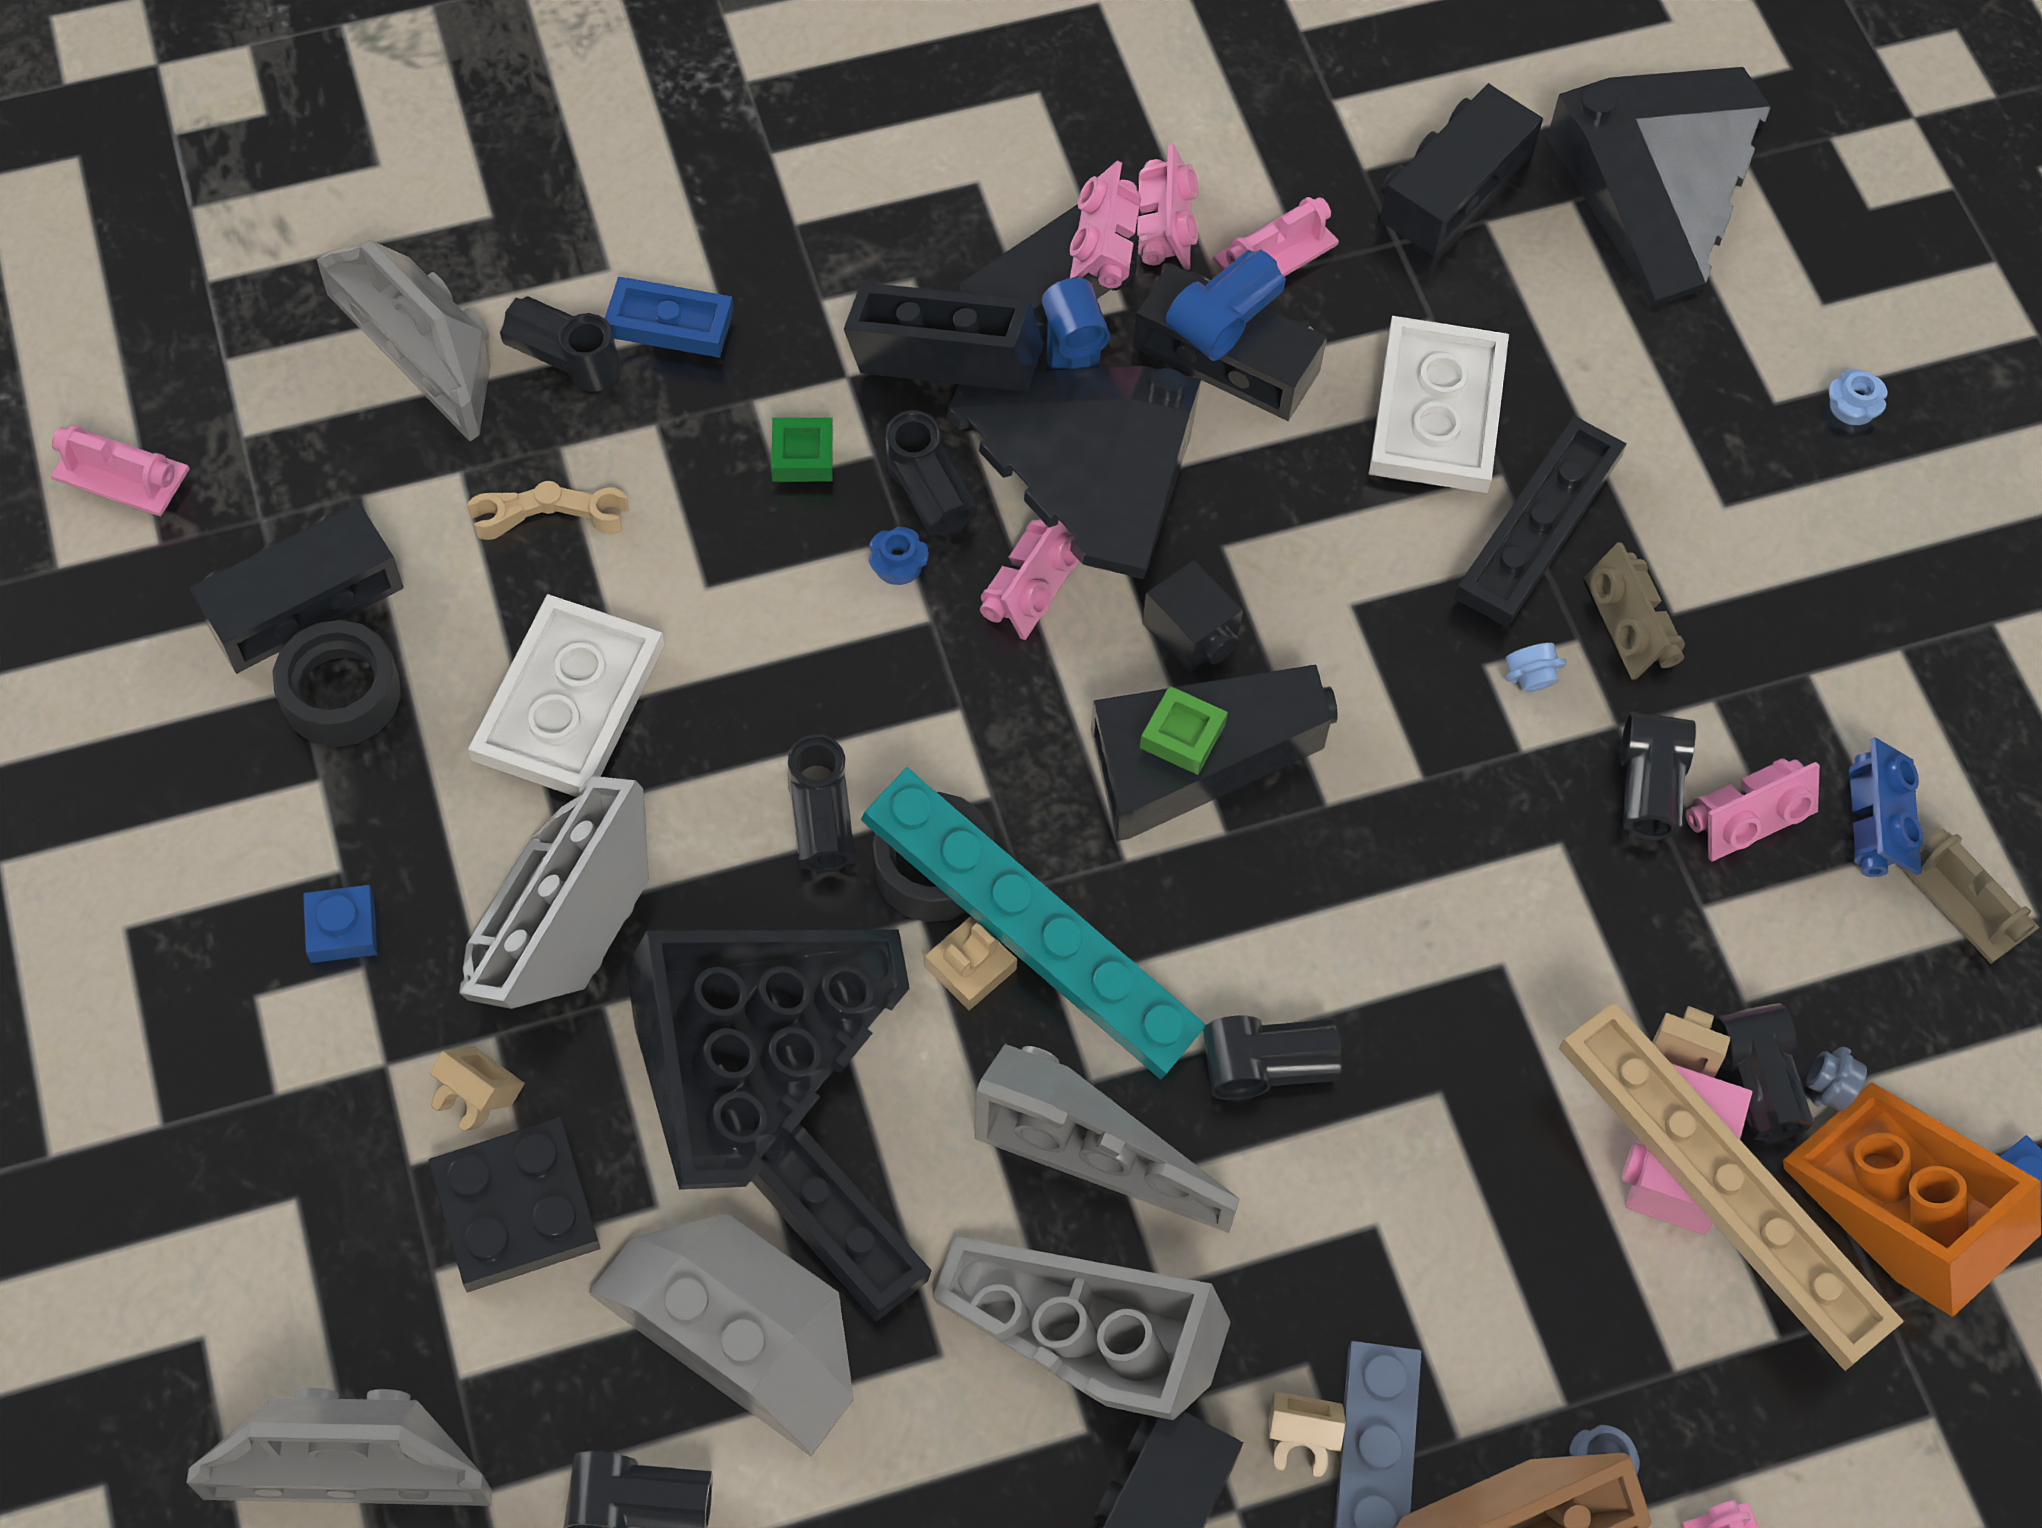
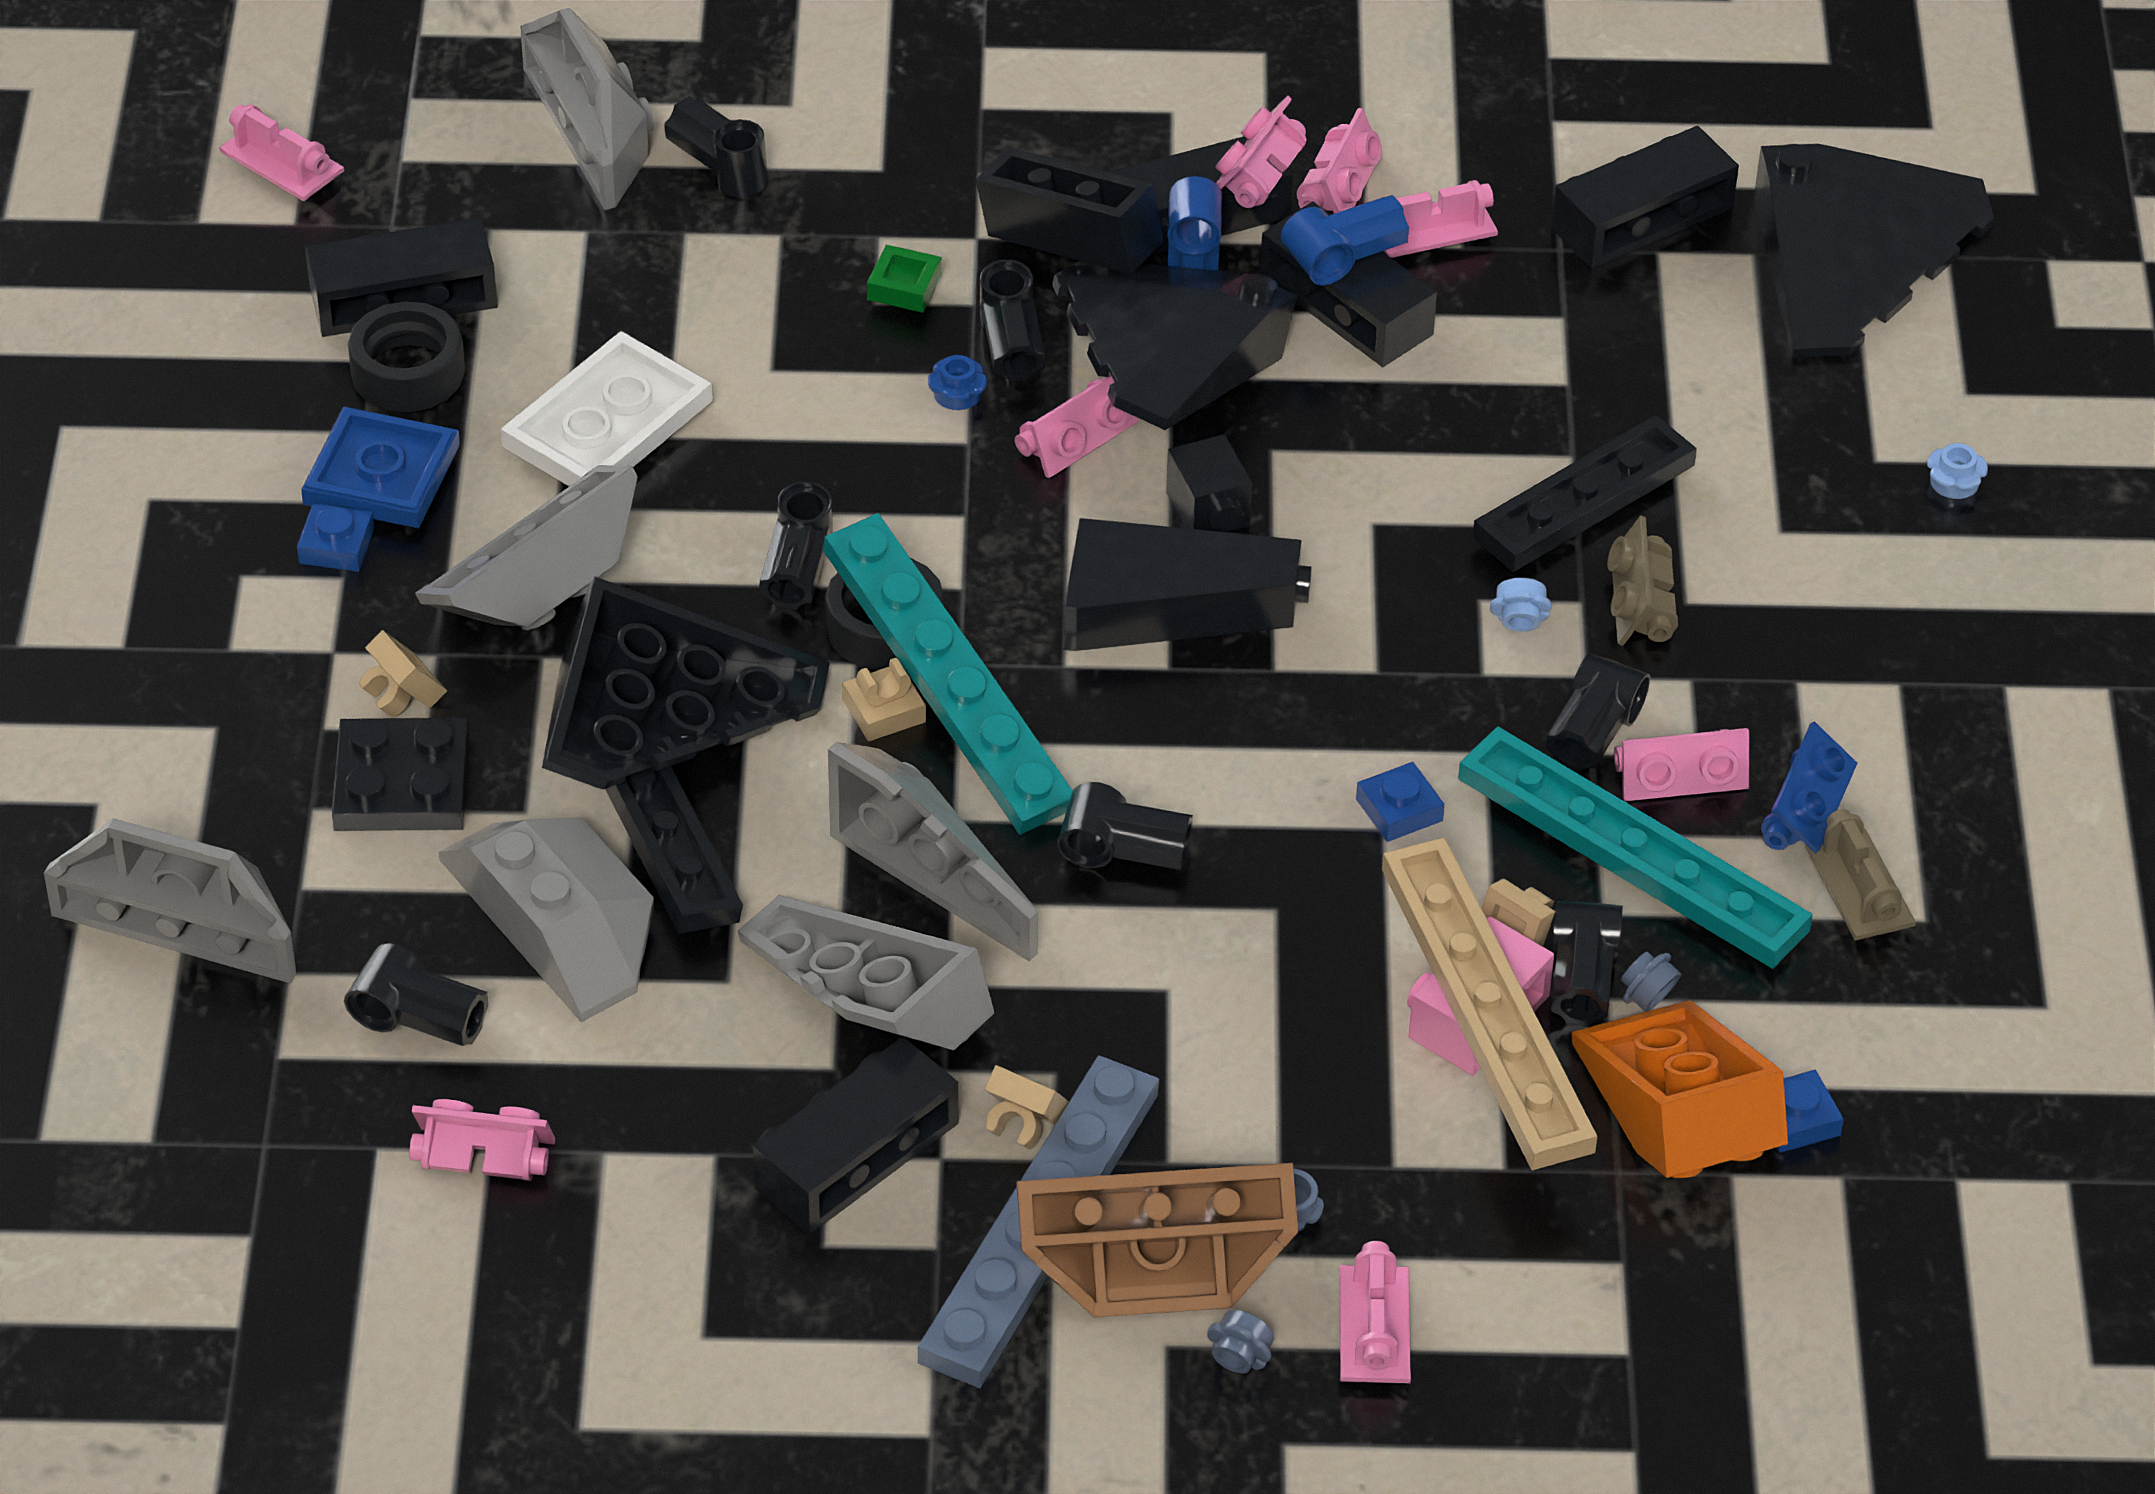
camera: 20 degrees right, 15 degrees down
(357, 826) = (381, 466): none -> blue plate
(546, 498) = (606, 267): tan piece -> none
(669, 316) = (827, 148): blue plate -> none
(1183, 730) = (1147, 550): bright green plate -> none
(1439, 404) = (1530, 379): white plate -> none
(1511, 930) = (1400, 801): none -> blue plate
(1755, 922) = (1635, 847): none -> teal plate

